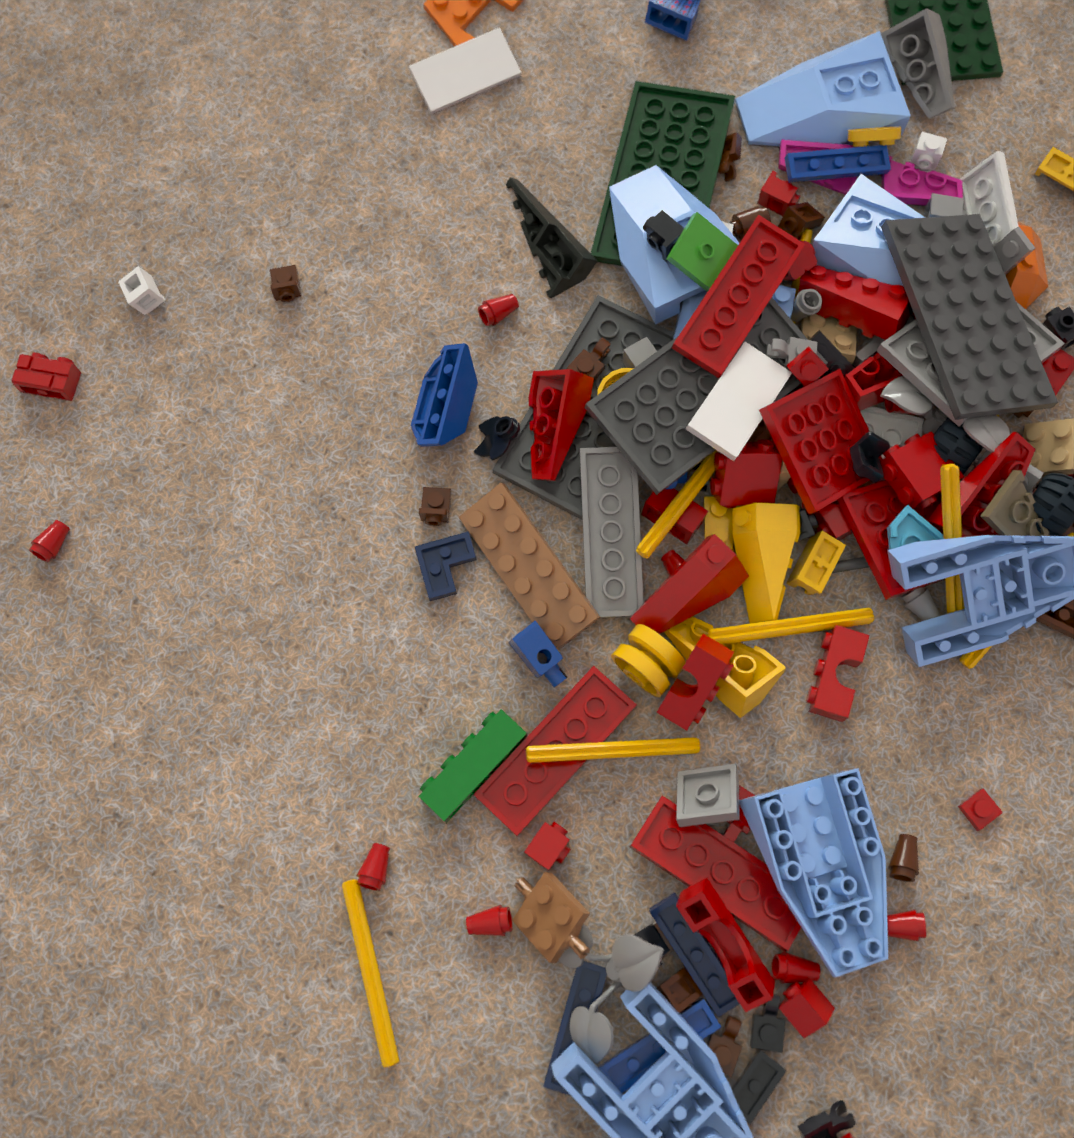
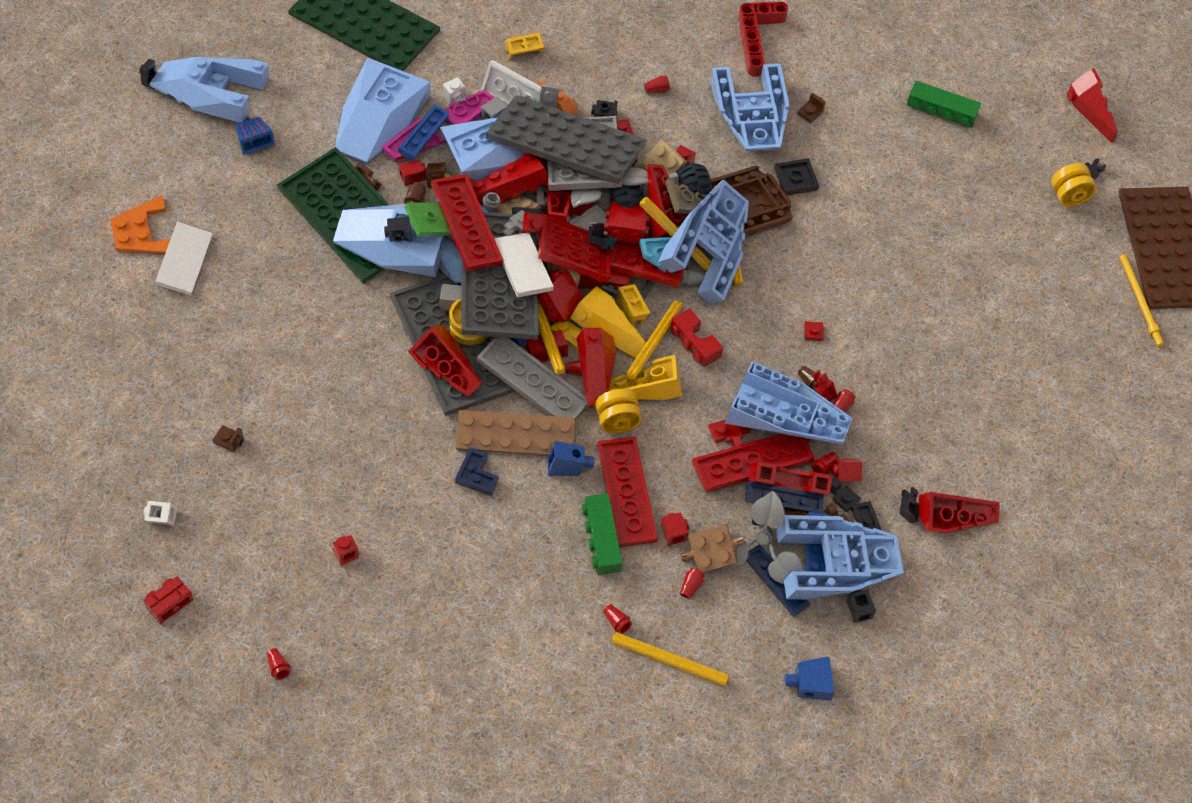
camera: 60 degrees left, 15 degrees down
(235, 501) = (344, 546): none -> red brick
(435, 505) = (438, 455): reddish brown bracket -> none
(445, 397) = (380, 405): blue wedge -> none
(496, 309) = (350, 347): red cone -> none
(498, 434) = (427, 399): black plate -> none
(560, 253) = (348, 294): pearl dark grey wedge -> none
(590, 363) = (427, 321): reddish brown plate -> none
(615, 749) = (650, 462): yellow axle -> none
(706, 663) = (655, 411): red arch -> none
(708, 795) = (710, 435): light grey plate -> none
(885, 135) = (427, 101): yellow plate -> none
(903, 890) = (825, 386): none -> red plate
(921, 58) = (403, 54): light grey wedge -> none

